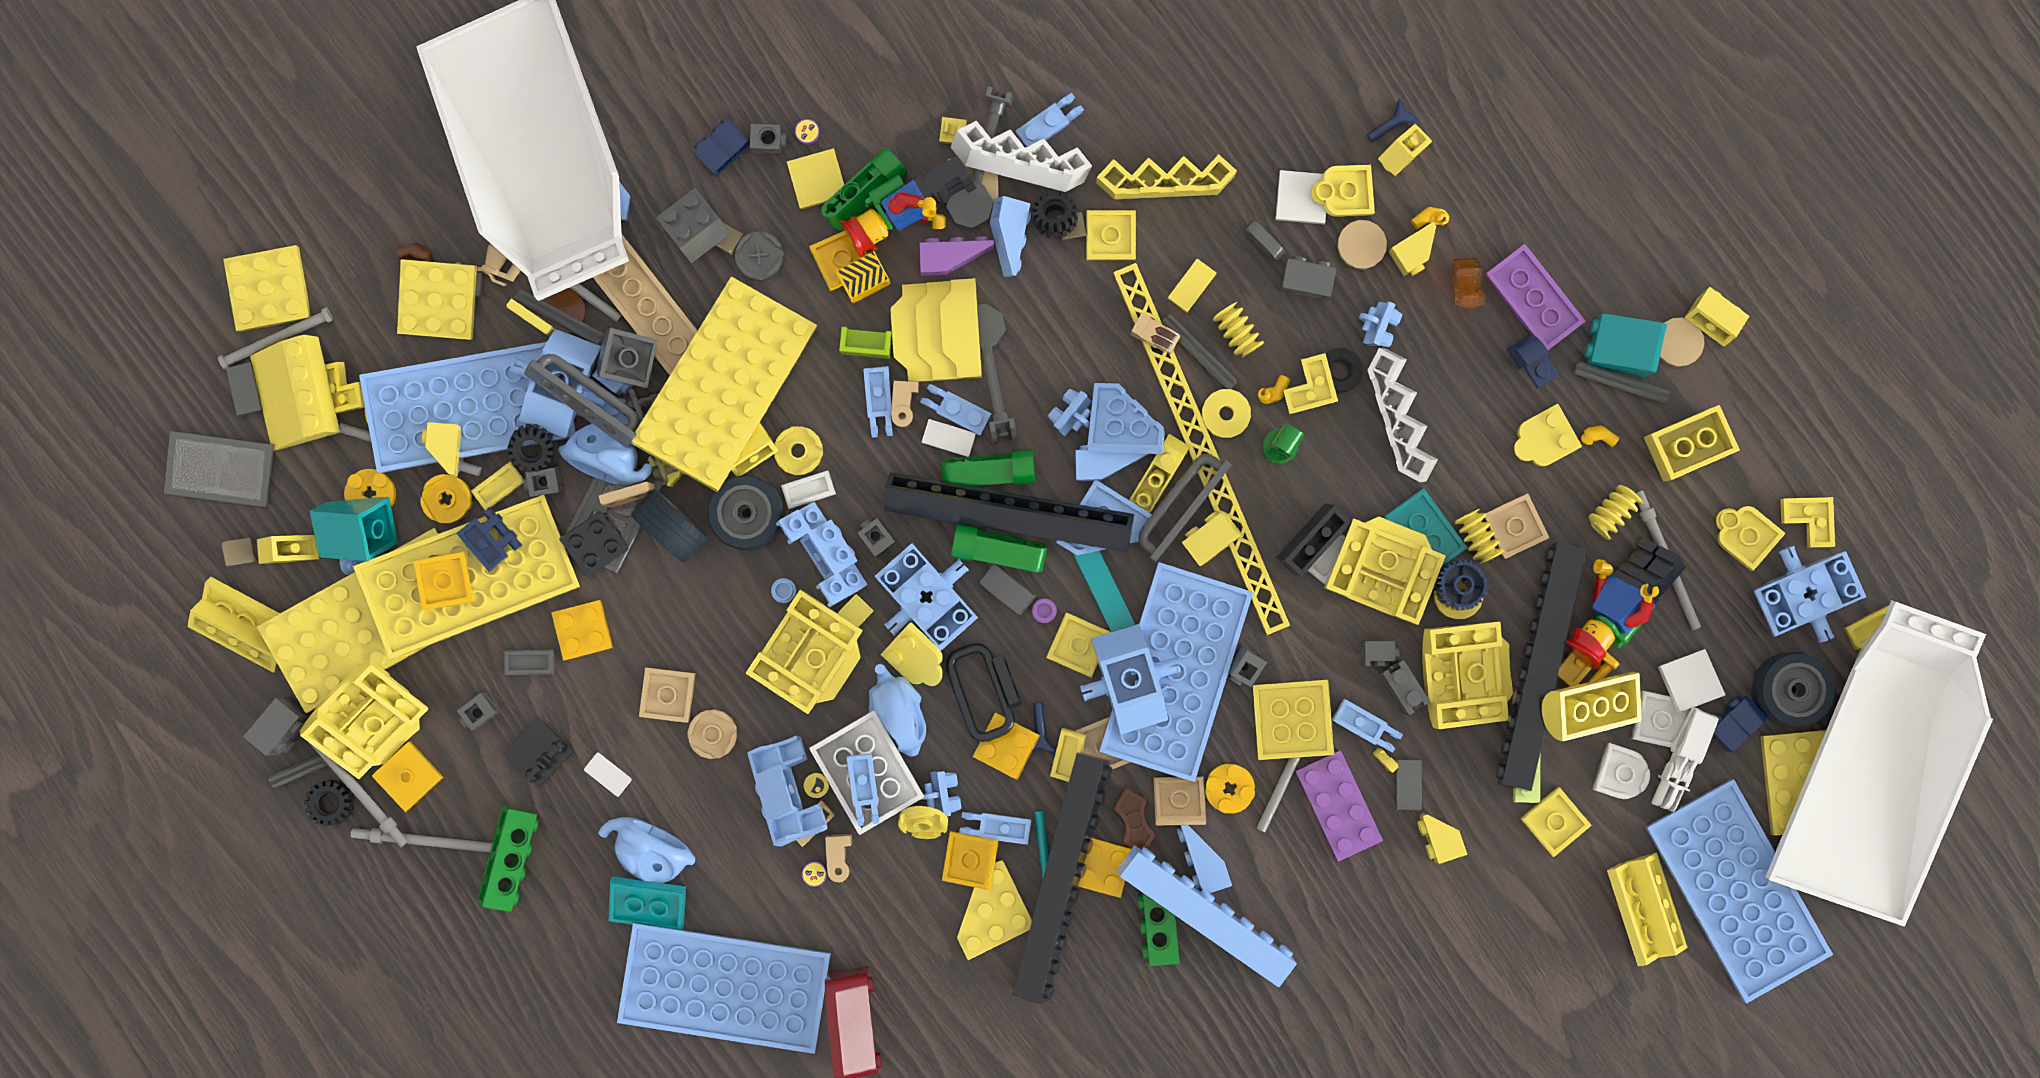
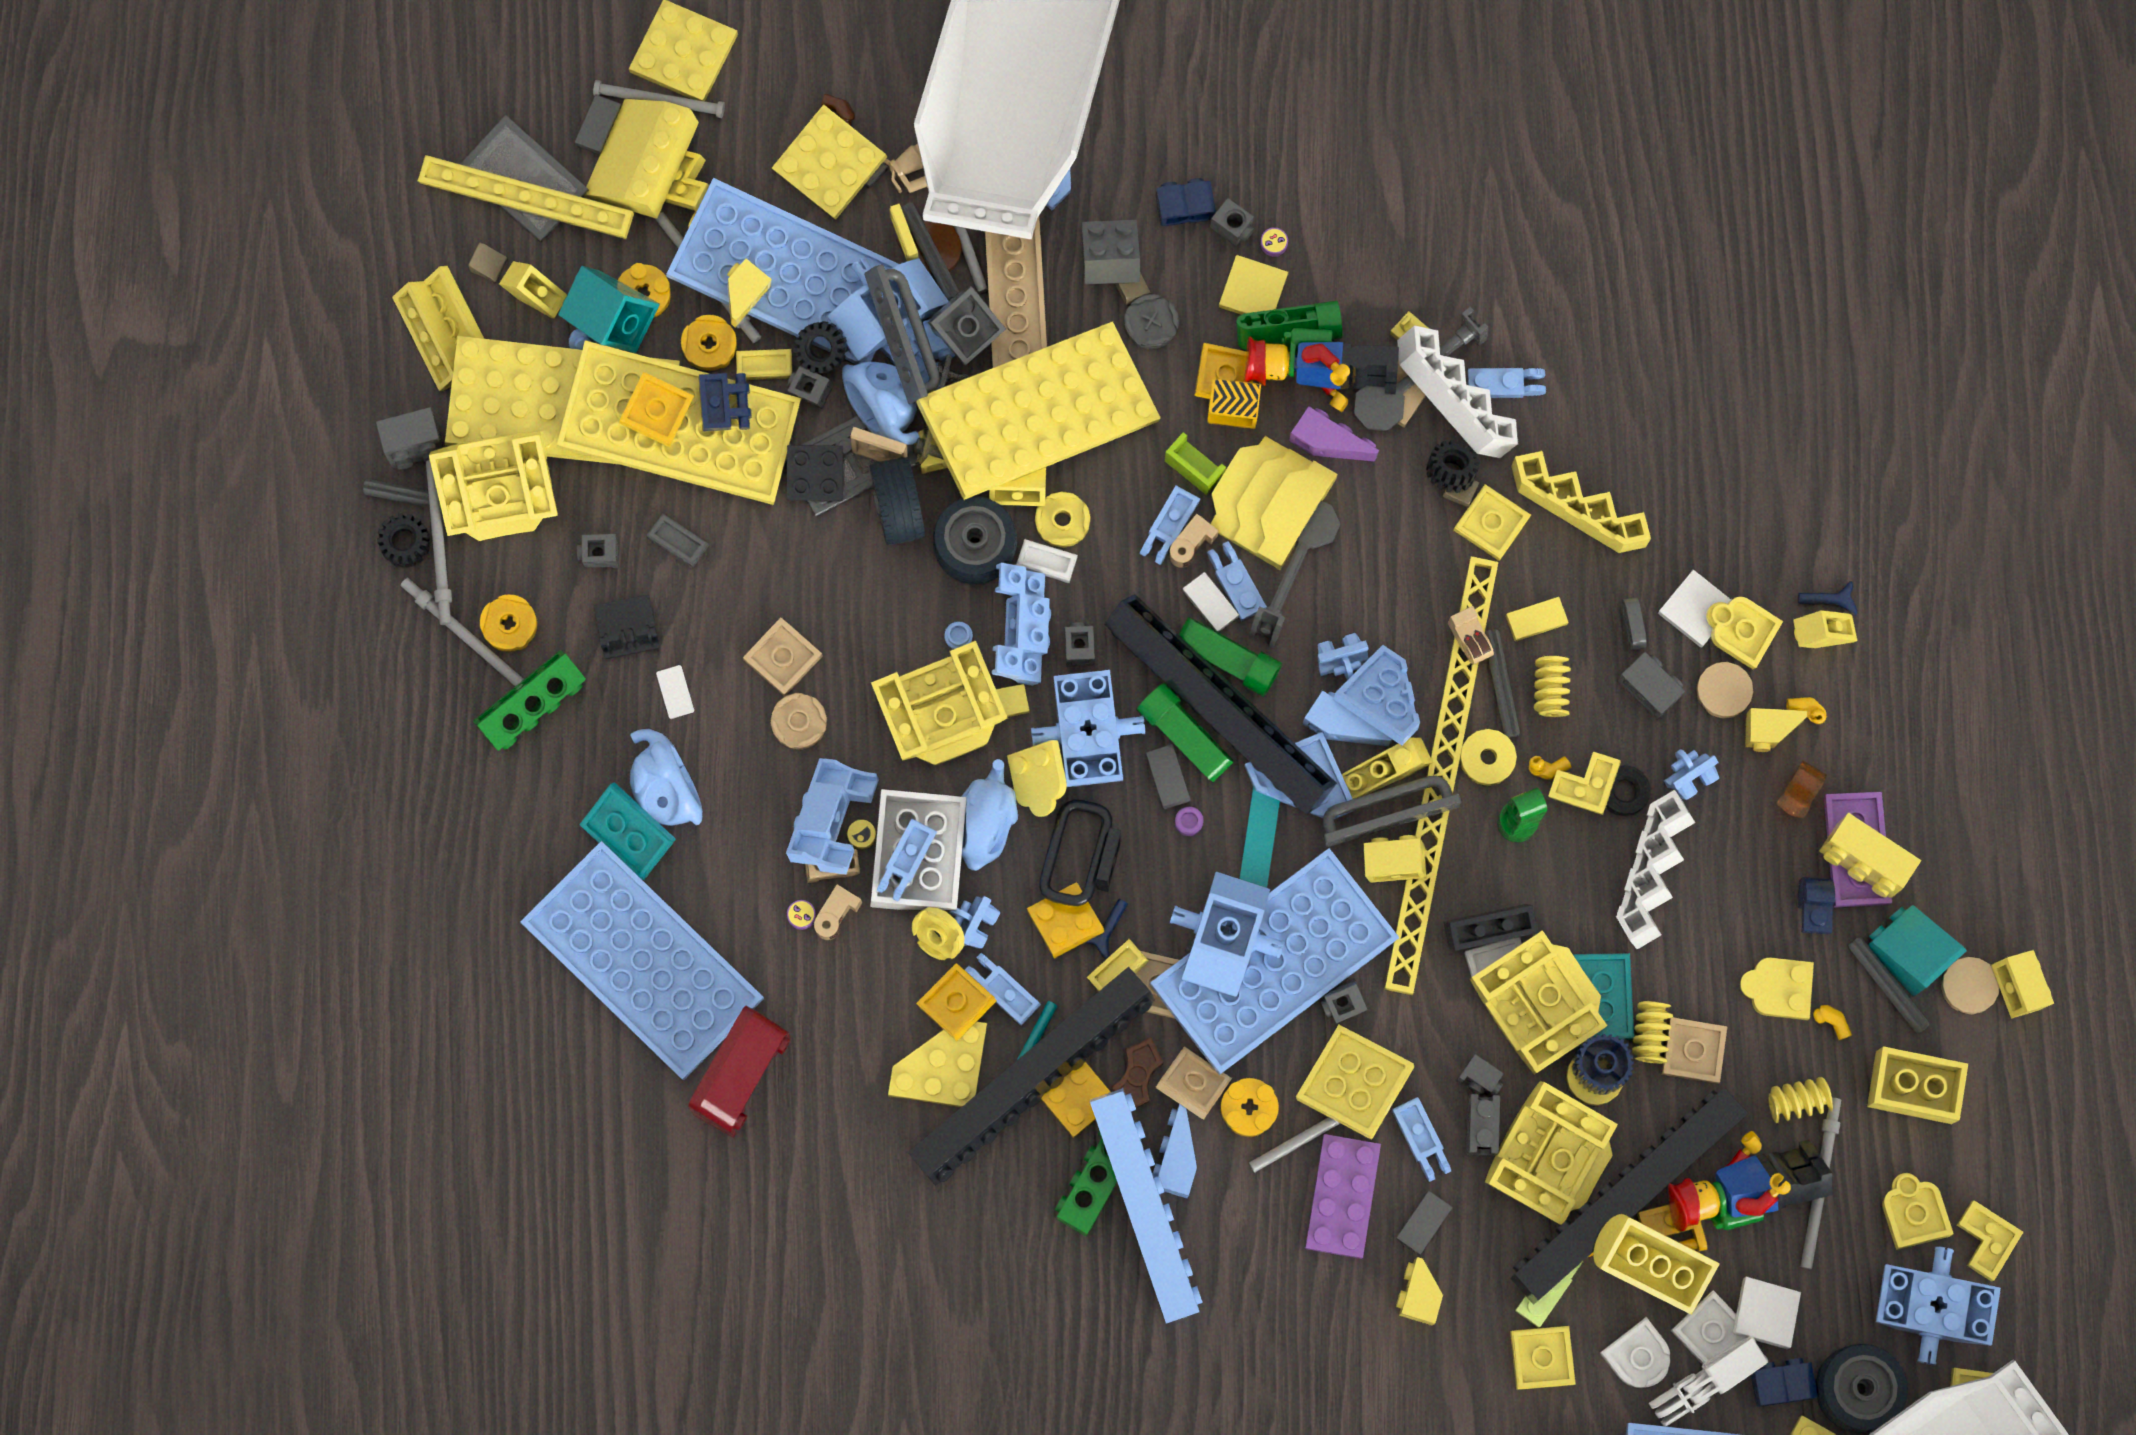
camera: 30 degrees right, 10 degrees down
(230, 483) = (525, 197): none -> light yellow tile
(407, 776) = (491, 566): yellow plate -> none
(437, 804) = (518, 636): none -> yellow plate
(582, 630) = (746, 544): yellow plate -> none
(1008, 229) = (1401, 447): light blue slope -> none
(1074, 645) = (1194, 871): light yellow tile -> none
(1385, 760) = (1418, 1185): light yellow tile -> none
(1551, 301) = (1869, 856): none -> light yellow brick

